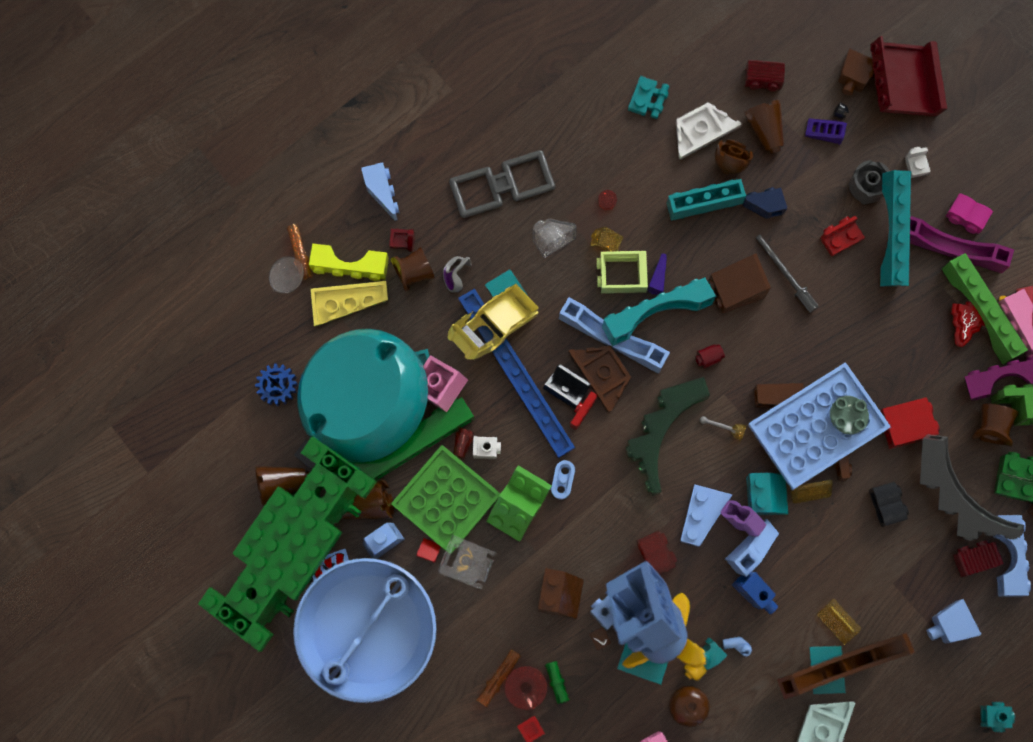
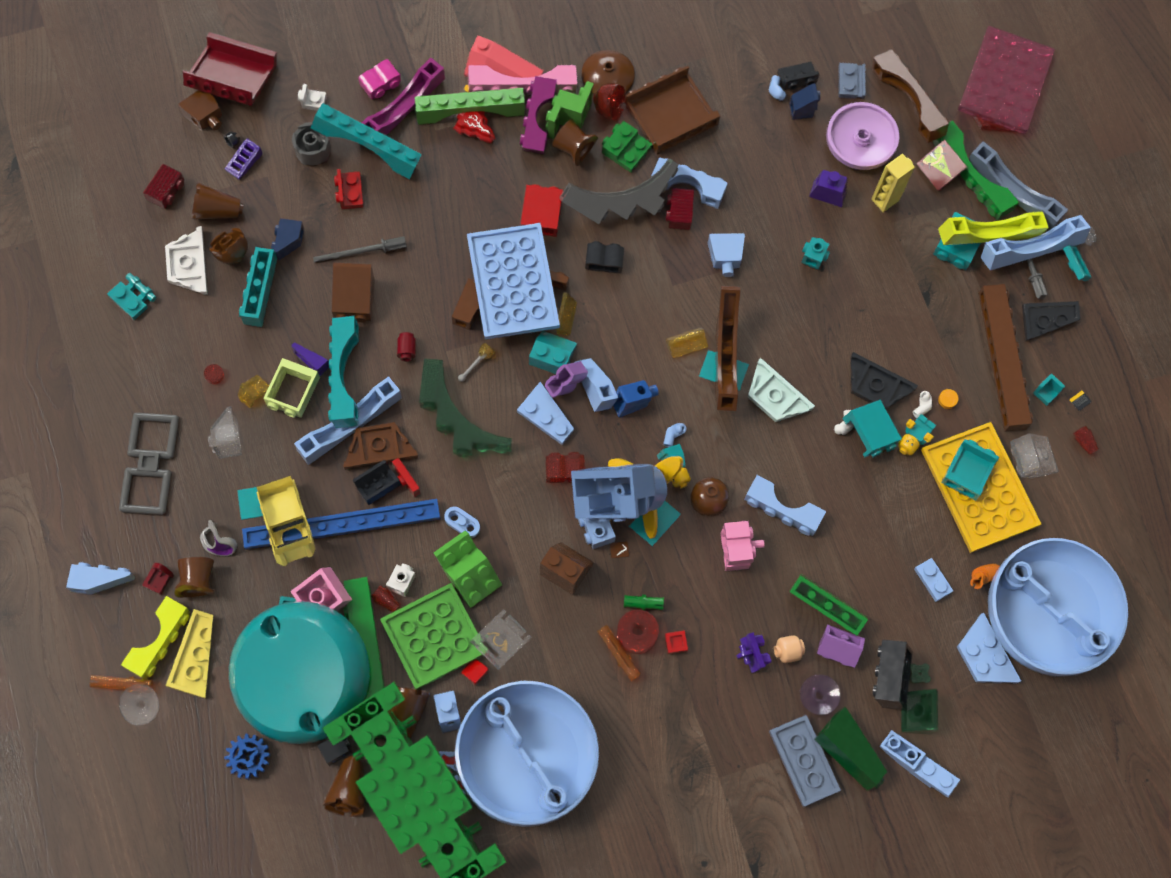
camera: 75 degrees left, 5 degrees down
(849, 414) = (515, 250): sand green dish -> none

